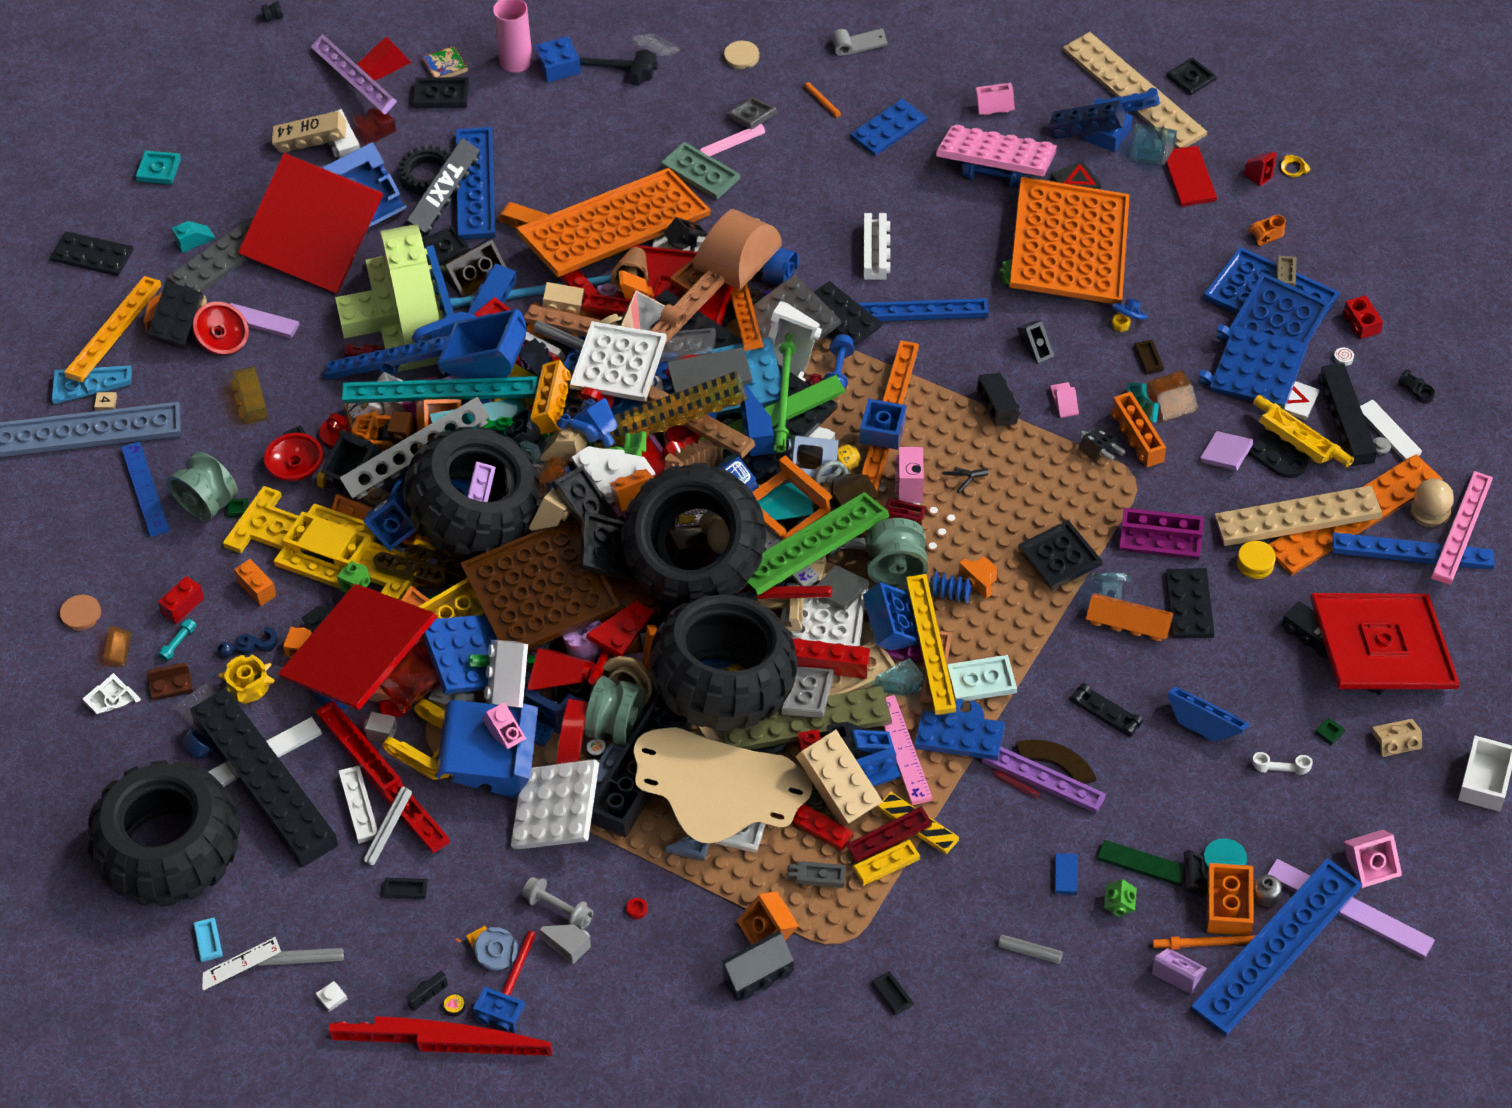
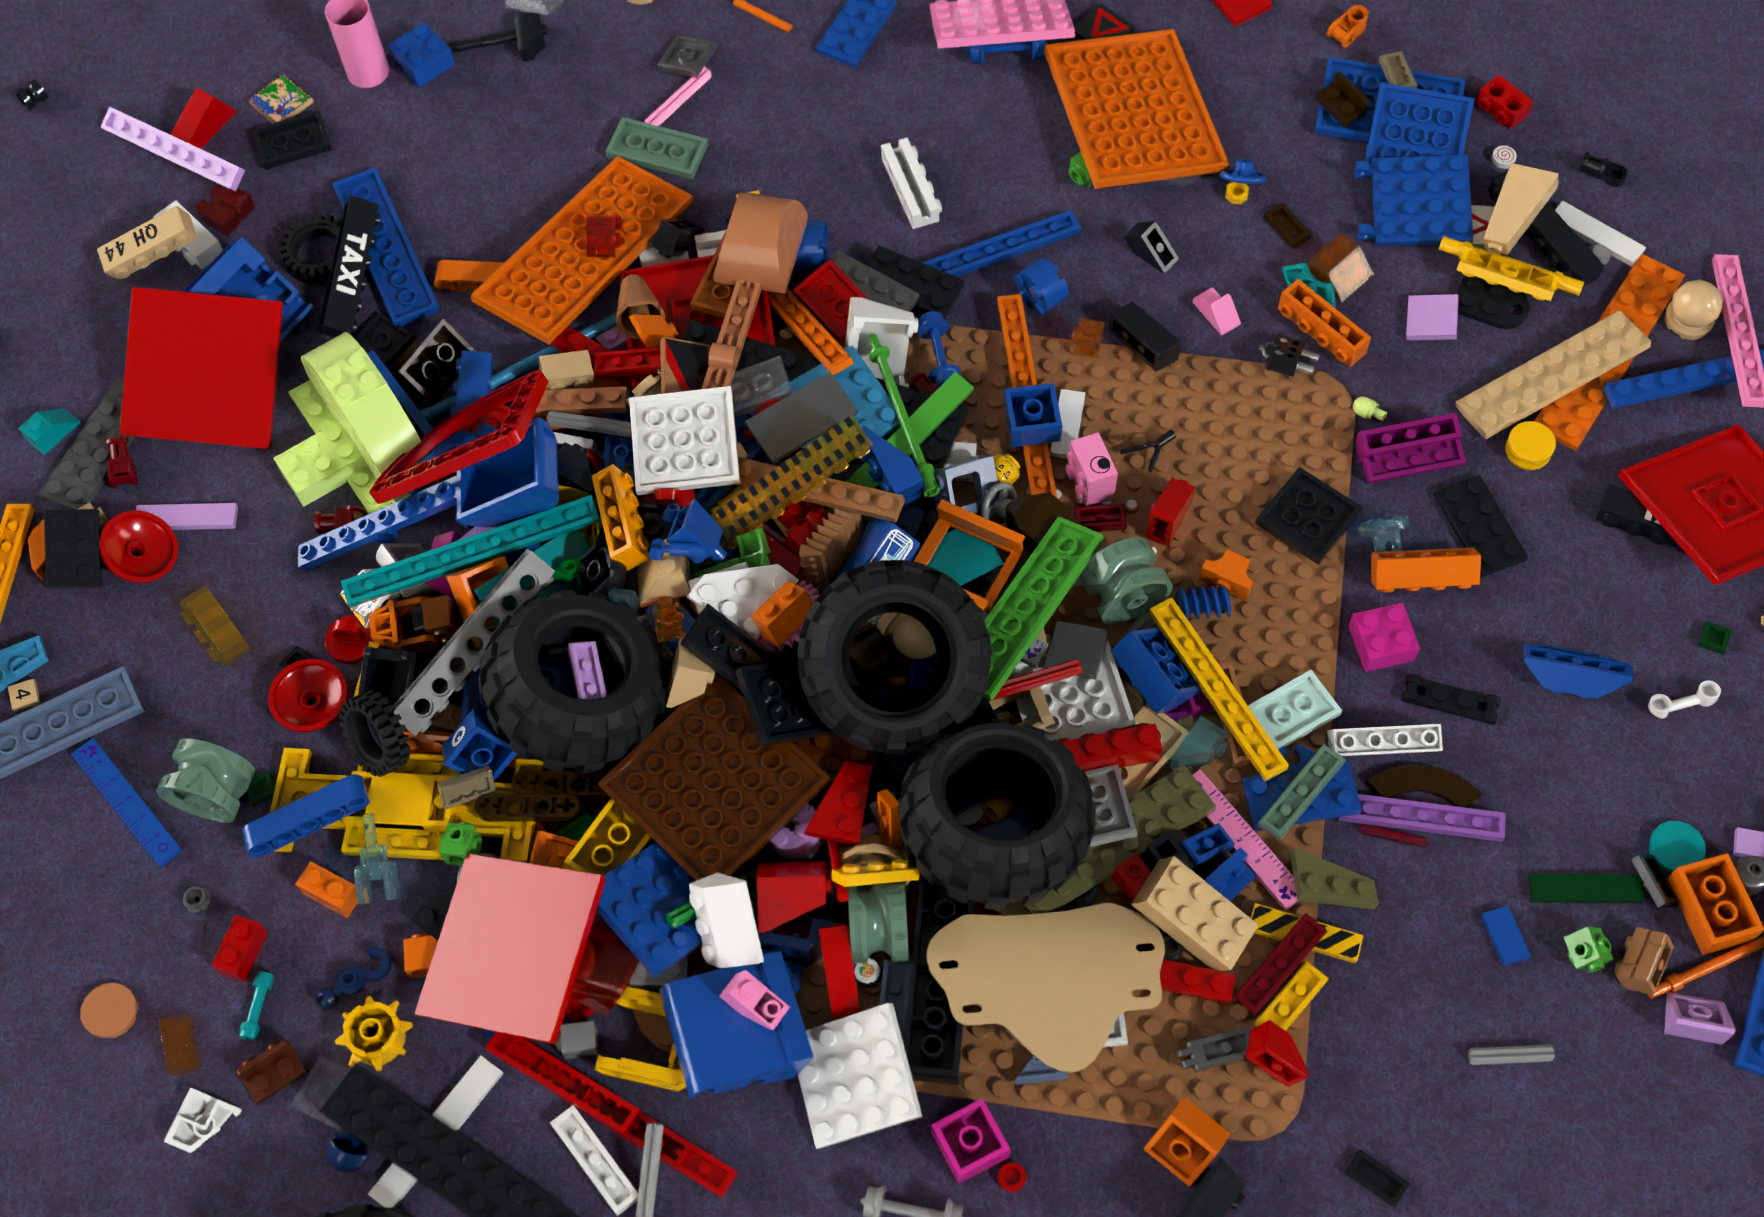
camera: 20 degrees left, 10 degrees up
(163, 558) = (193, 893): none -> flat silver plate
(231, 273) = (121, 465): none -> dark red connector
(258, 528) = (305, 815): none -> blue beam
(290, 576) = (374, 867): none -> clear light blue plant
(330, 470) = (393, 740): none -> black tyre
(372, 542) = (466, 787): none -> dark tan plate
(446, 317) = (403, 478): none -> red beam
(616, 873) = (970, 1141): none -> dark pink brick
(622, 673) = (875, 873): none -> yellow plate
(630, 215) = (603, 235): none -> clear red cylinder
(769, 296) = (828, 297): none -> red plate
(856, 887) = (1276, 1053): none -> red slope
(915, 436) = (1071, 410): none -> white tile
(936, 343) = (1041, 286): none -> blue brick
(953, 798) = (1329, 883): none -> olive wing
(954, 387) = (1088, 337): none -> clear orange brick
(955, 519) = (1169, 511): none -> red slope
(958, 729) = (1301, 792): none -> sand green tile
(1039, 718) = (1386, 740): none -> white brick
(1075, 652) = (1384, 637): none -> dark pink brick
(1143, 497) = (1367, 407): none -> yellowish green cylinder
(1158, 919) = (1644, 960): none -> medium nougat brick
(1233, 280) = (1343, 101): none -> dark brown bracket
(1327, 389) = (1518, 204): none -> tan slope

